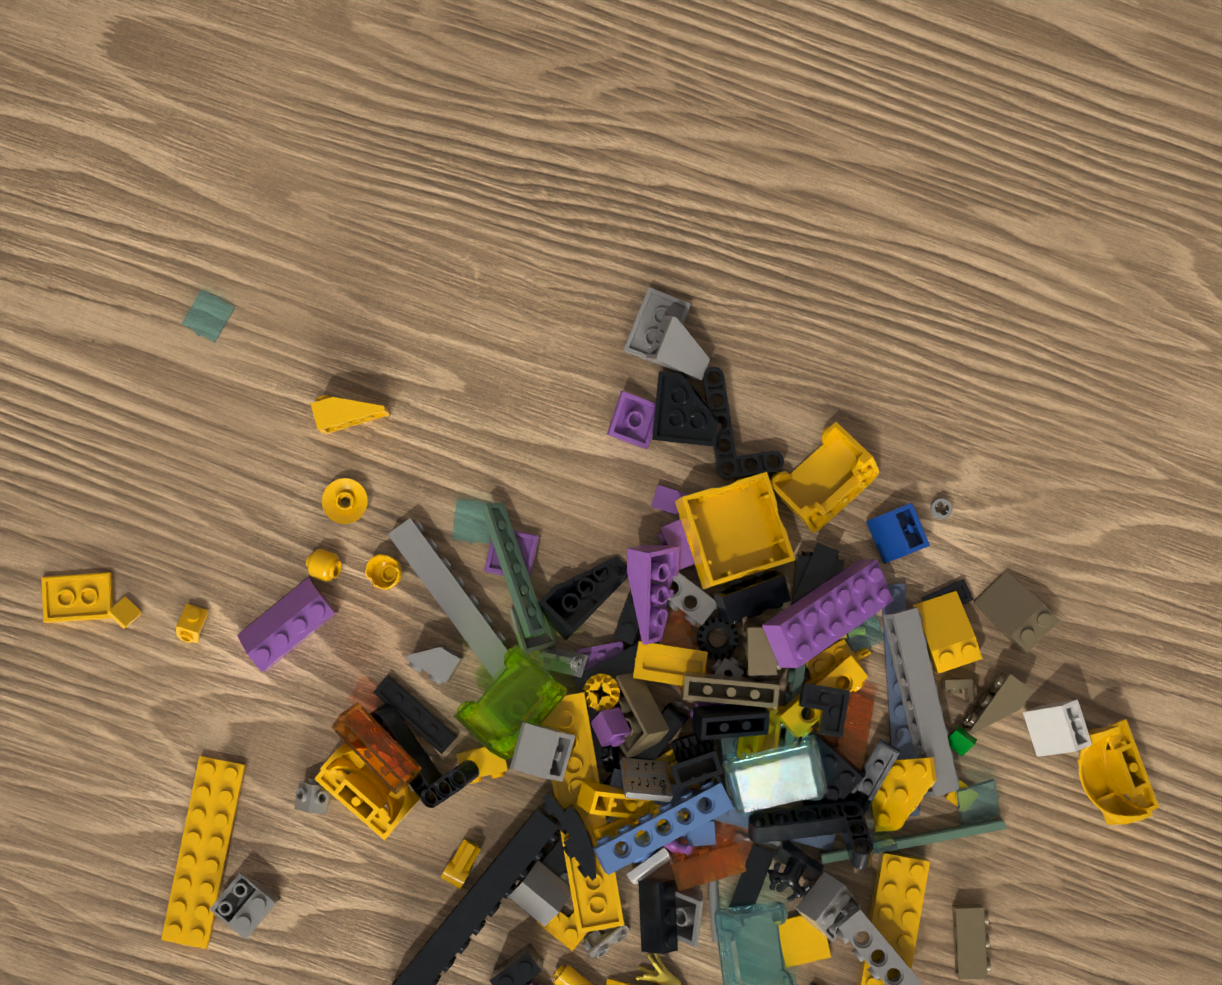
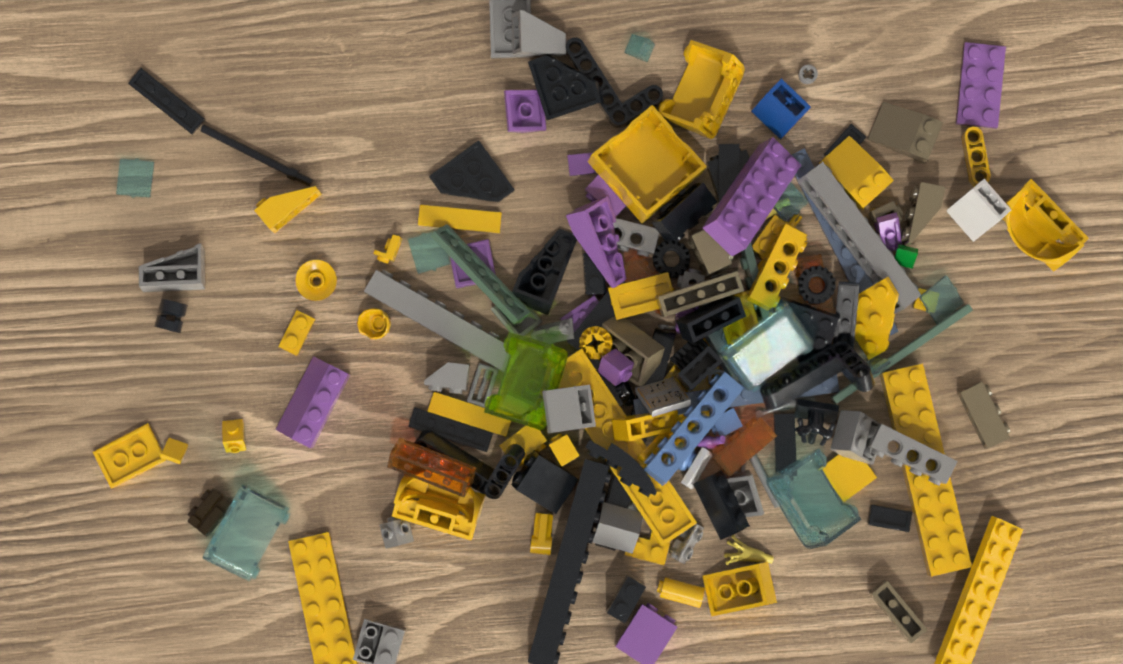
camera: 25 degrees left, 0 degrees up
(133, 691) = (210, 511): none -> dark brown brick
(159, 729) = (246, 532): none -> clear light blue windscreen
(186, 467) = (172, 308): none -> black wheel
(206, 431) = (175, 273): none -> light grey wedge
(274, 251) = (166, 101): none -> black tile
(302, 545) = (296, 332): none -> yellow plate
(323, 565) = (322, 340): yellow head -> none
(369, 380) = (292, 173): none -> black bar
(436, 703) = (467, 414): none -> yellow tile
(437, 501) = (392, 247): none -> yellow bracket
(481, 668) = (475, 381): none -> light grey tile
(486, 812) = (544, 481): none -> black brick
(519, 502) = (460, 219): none -> yellow tile
(520, 788) = (563, 449): none -> yellow brick
(551, 463) = (472, 176): none -> black plate
(780, 406) = (639, 47): none -> clear light blue slope
(831, 702) = (784, 267): black plate -> none
(869, 733) = (825, 275): none -> black tyre
(955, 707) = (889, 230): none -> medium lavender slope
(1086, 661) = (978, 147): none -> yellow beam
(1114, 597) = (980, 85): none -> medium lavender plate

